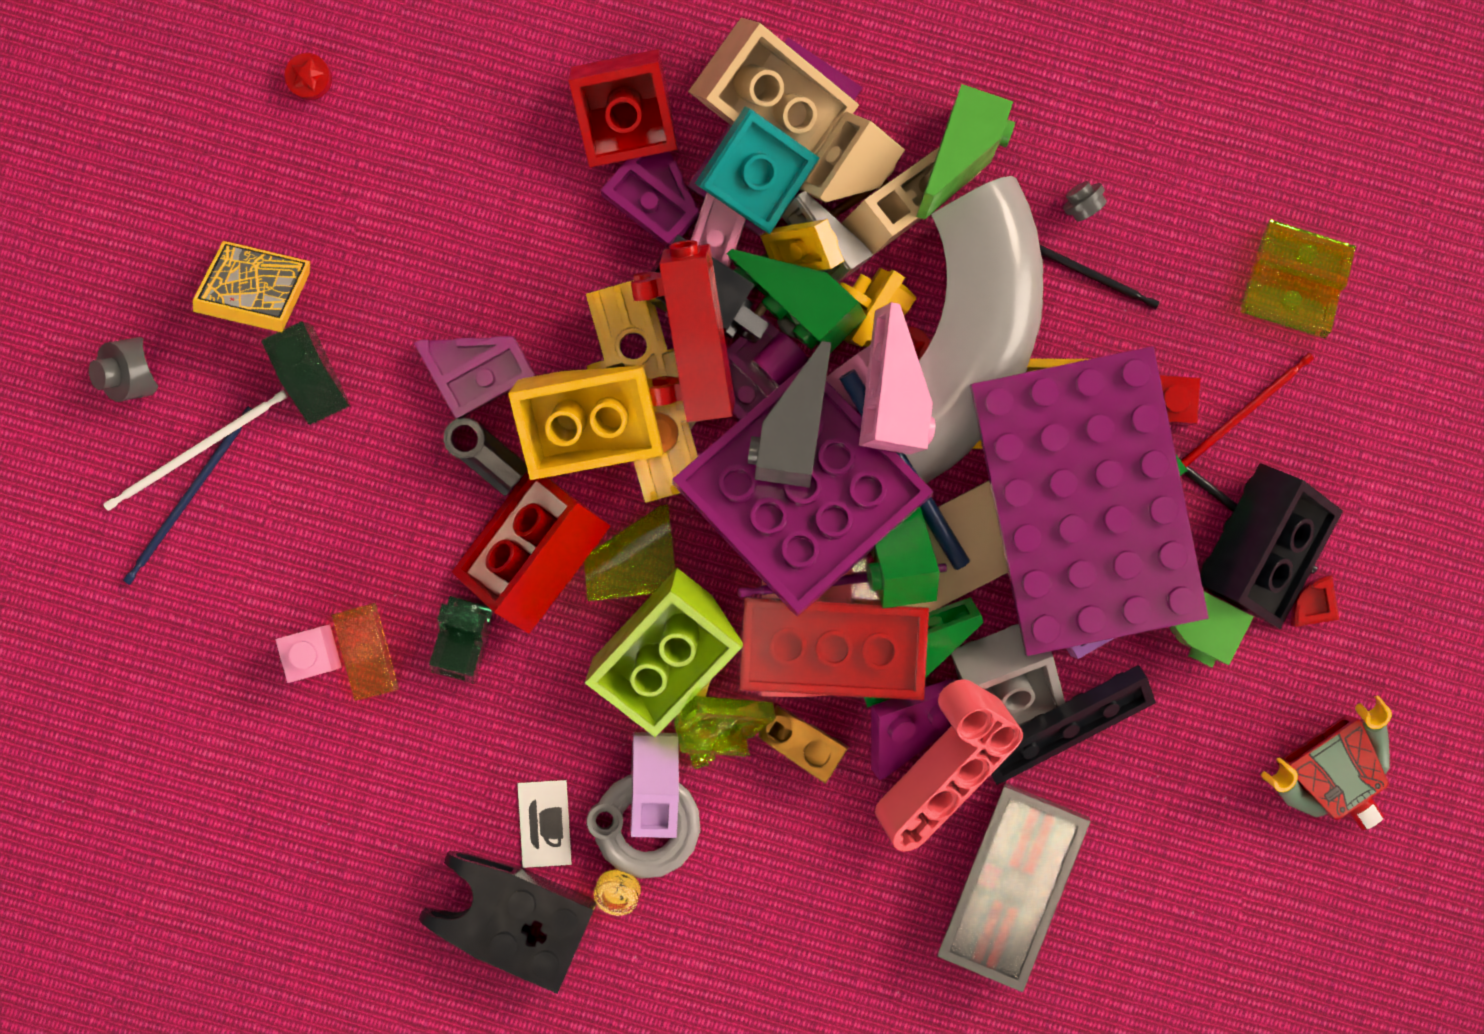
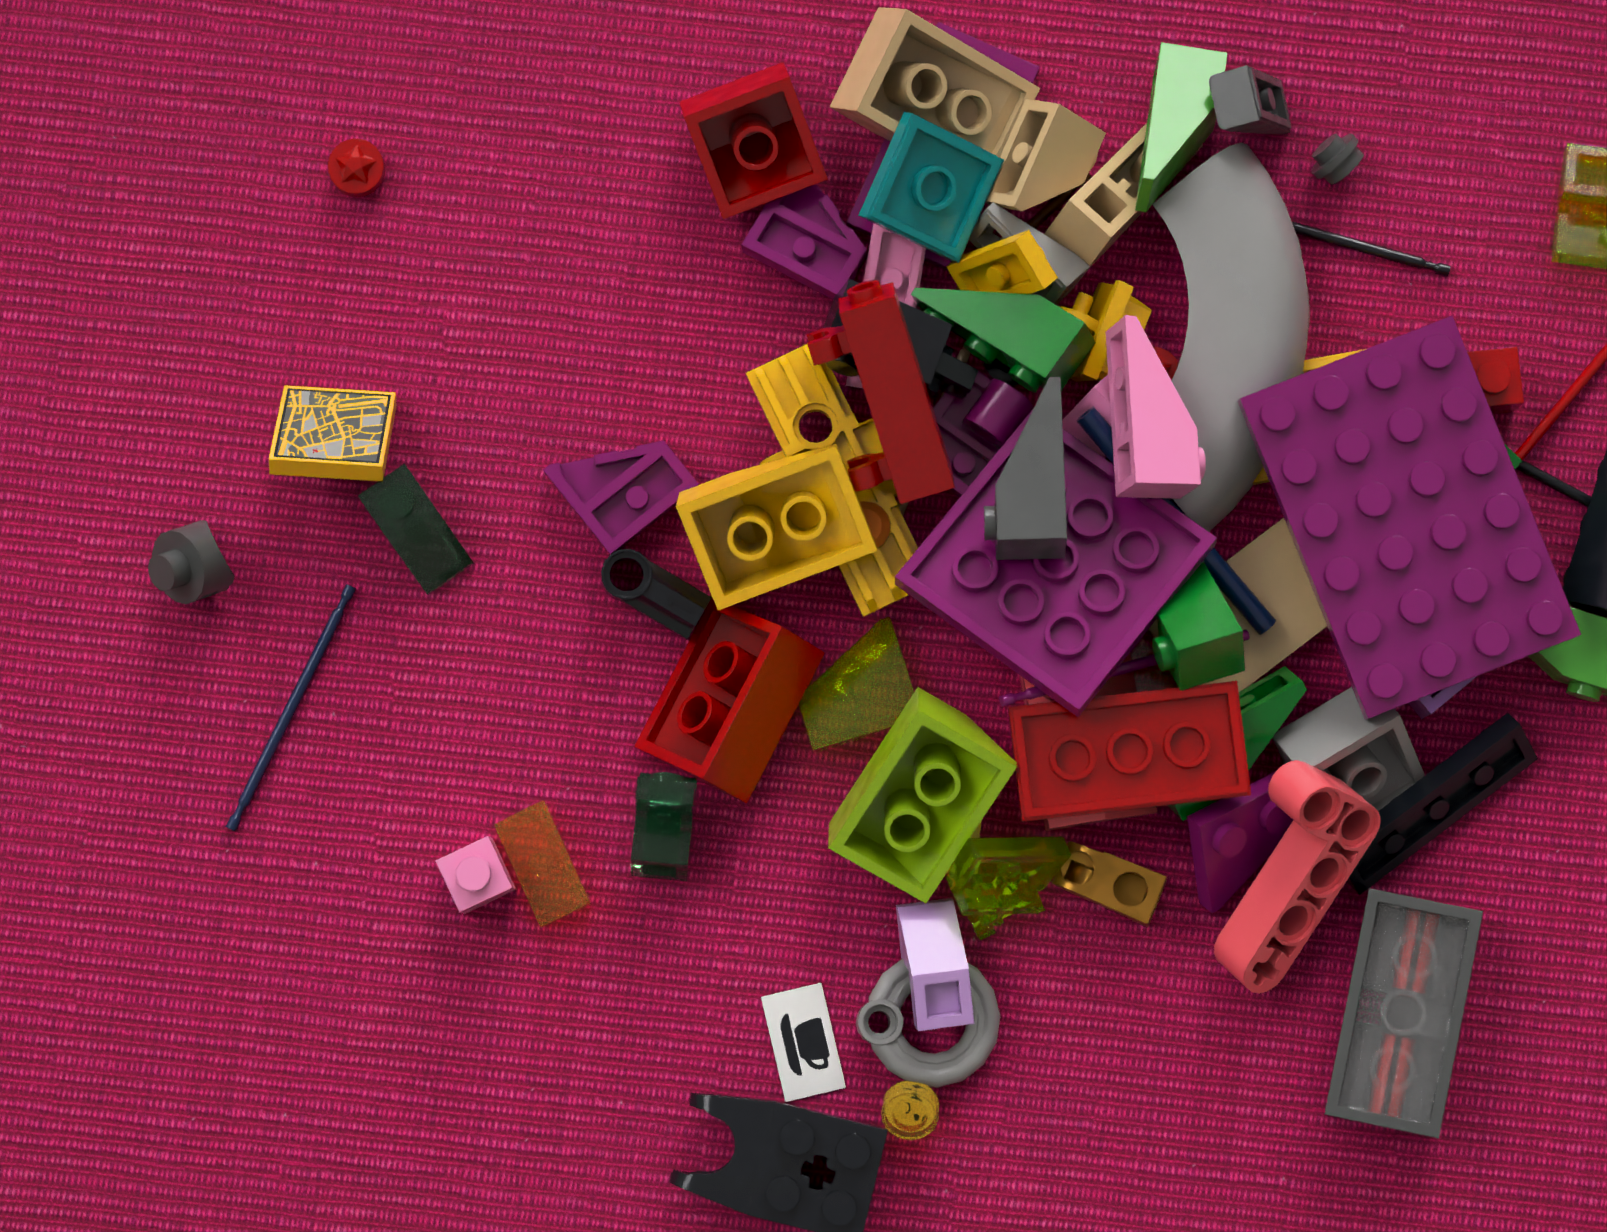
camera: 10 degrees left, 5 degrees down
(195, 450) = (291, 649): white piece -> none
(1023, 144) = (1249, 102): none -> dark grey slope

